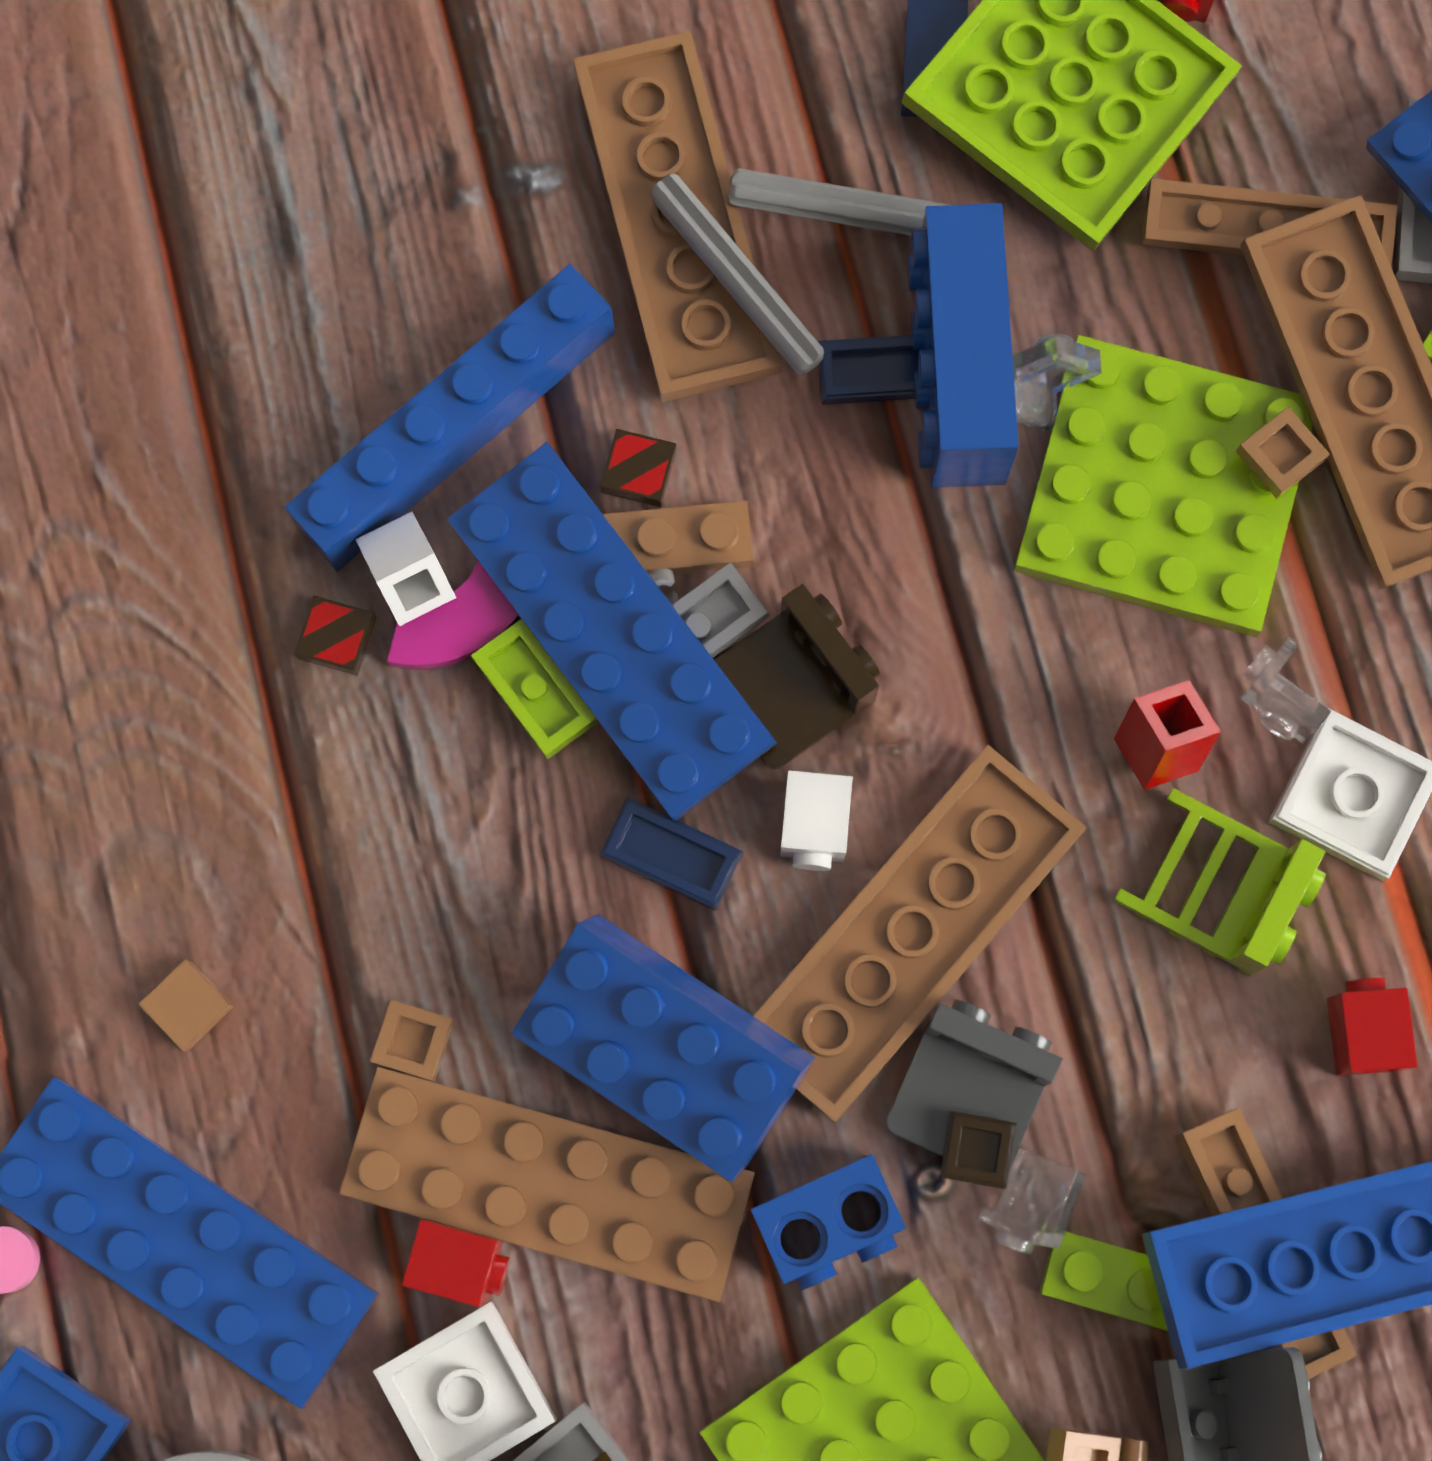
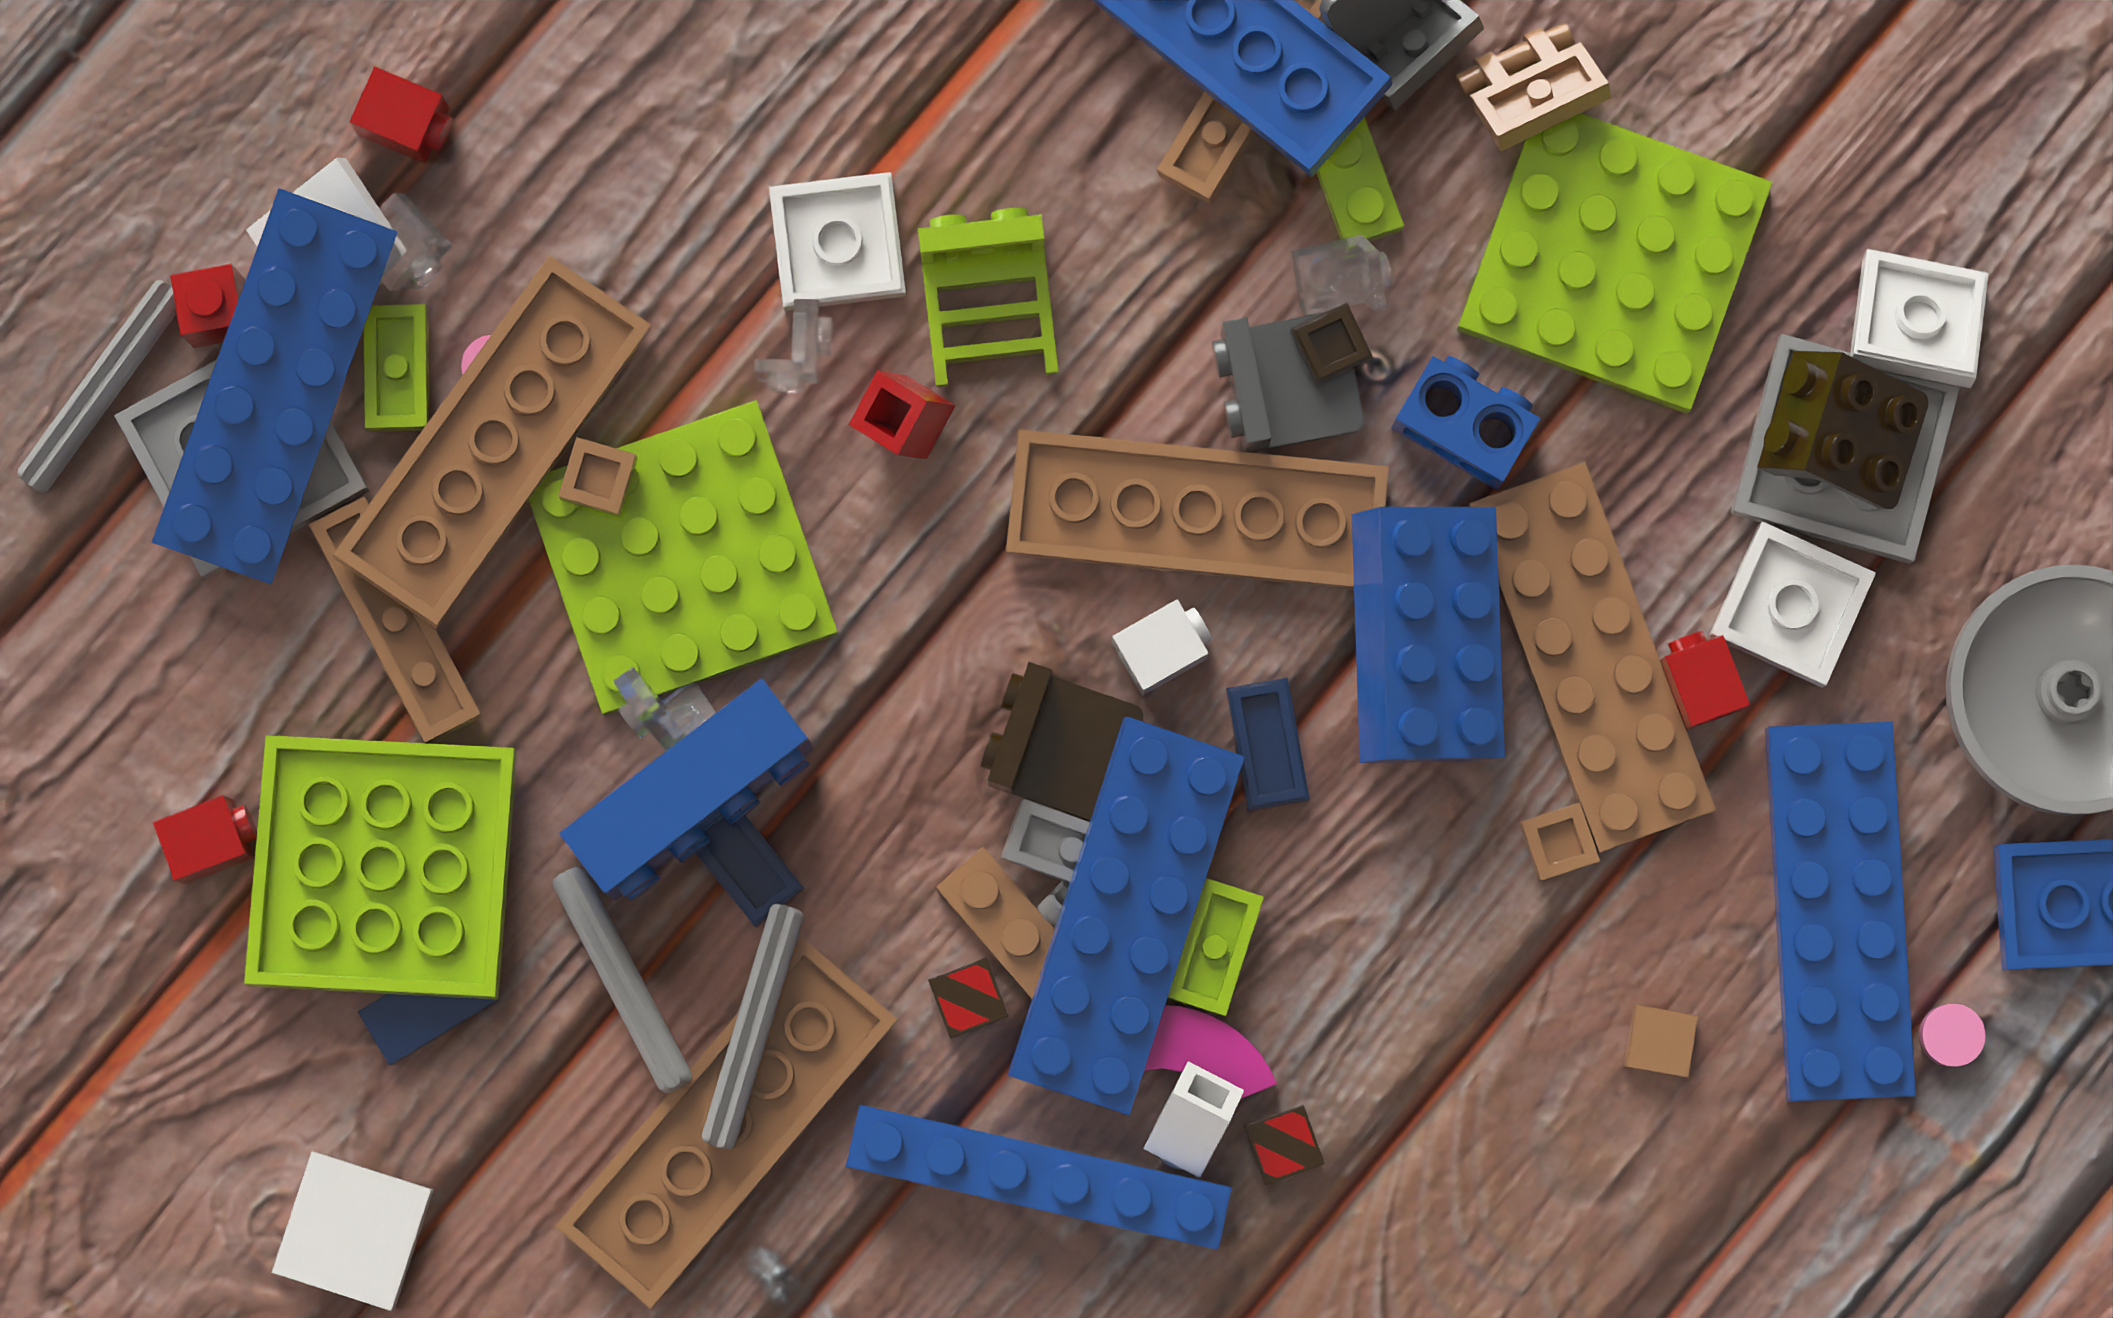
camera: 130 degrees left, 5 degrees up
(1371, 1028) = (1023, 109): red brick -> none

